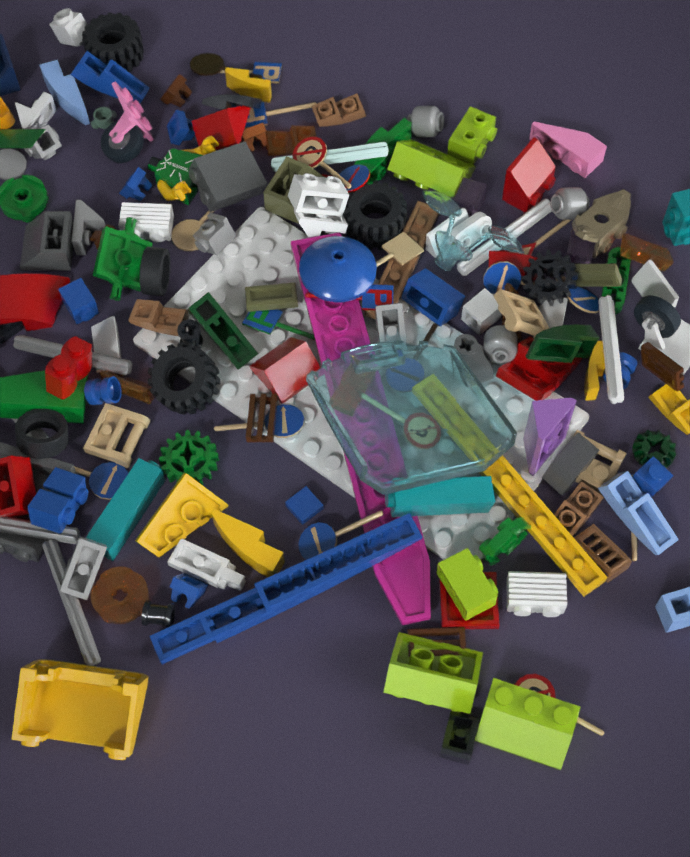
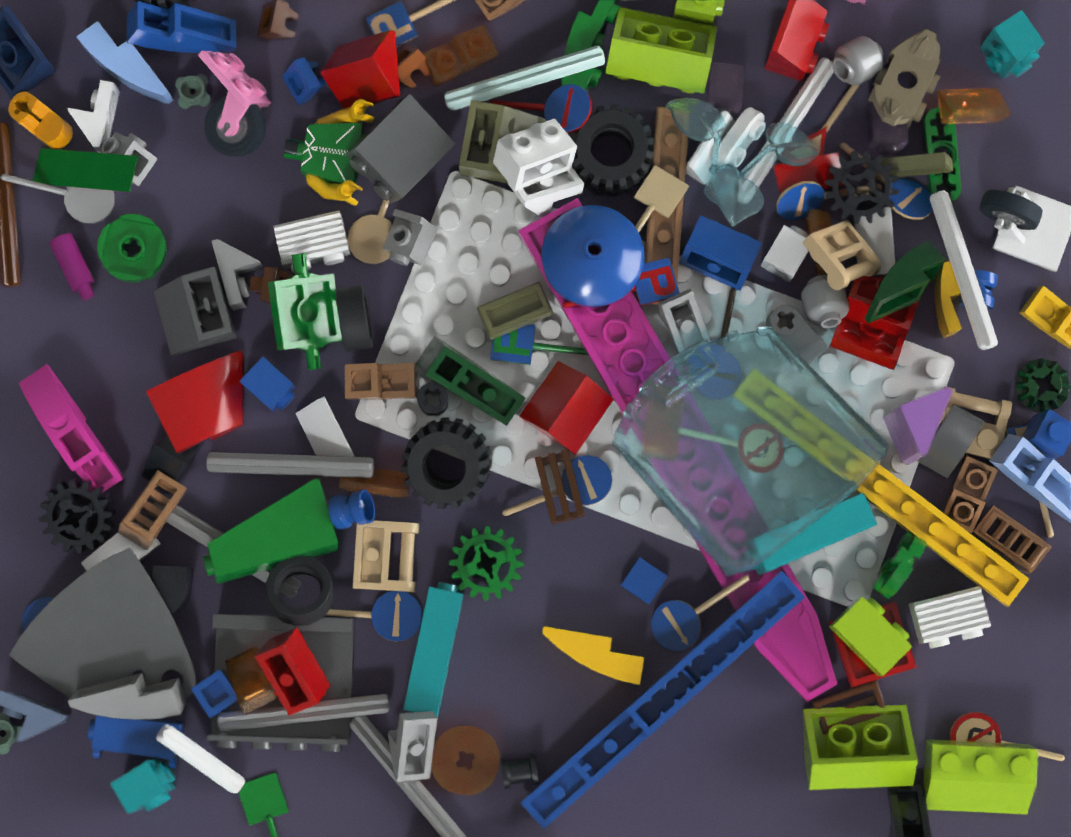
camera: 20 degrees left, 20 degrees up
(58, 508) = (352, 676): blue piece -> none
(68, 367) = (302, 505): red brick -> none
(133, 185) = (273, 187): blue tile -> none
(180, 513) = (502, 636): yellow wing -> none
(189, 586) = (543, 727): blue tile -> none
(205, 566) = (552, 694): white hinge -> none
(231, 100) = (369, 20): black slope -> none
(313, 152) = (500, 83): piece -> none
(652, 282) = (994, 158): white slope -> none
(662, 366) = (1030, 274): reddish brown tile -> none

